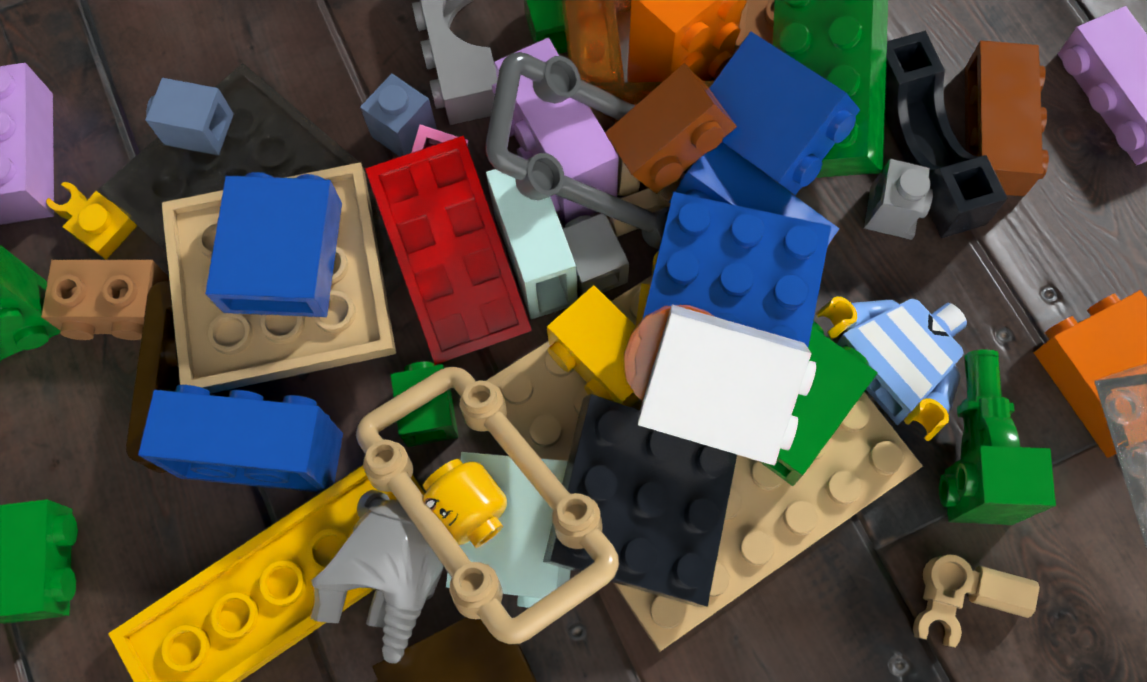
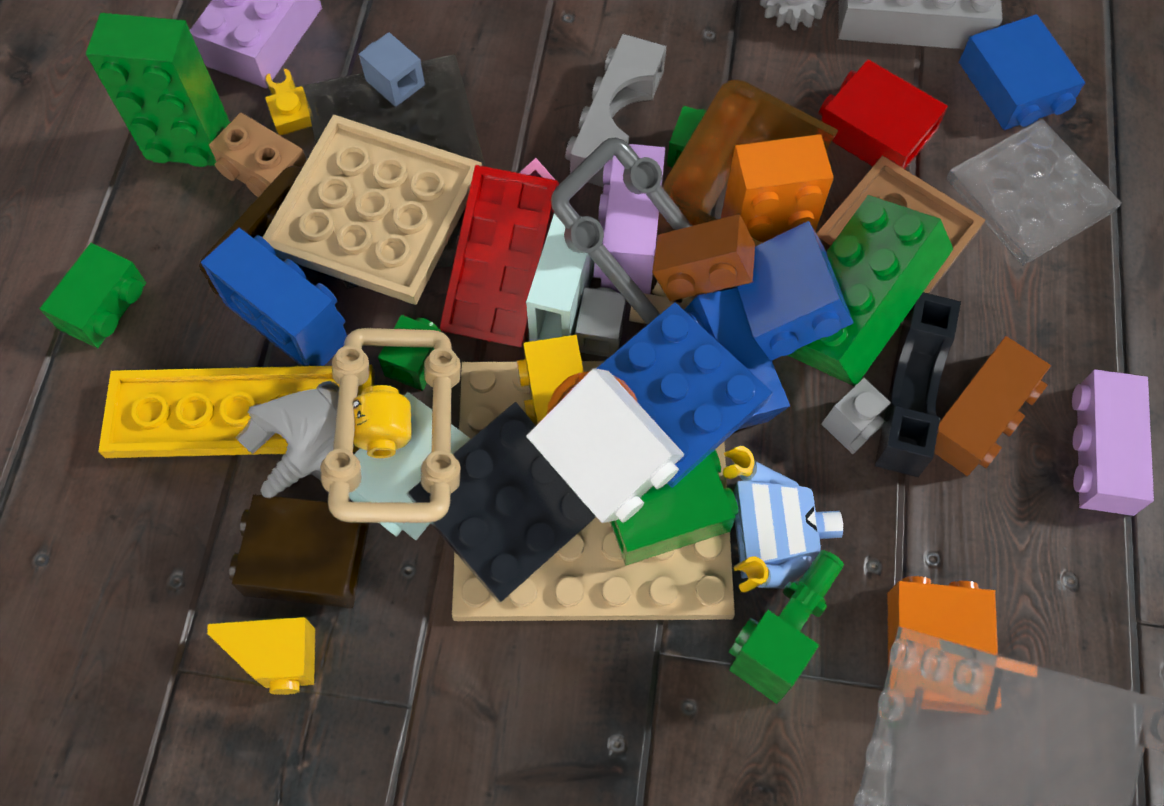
camera: 30 degrees right, 5 degrees down
(275, 245) = (382, 182): blue brick -> none
(396, 113) = (534, 140): sand blue brick -> none
(952, 577) = (696, 706): tan bar -> none

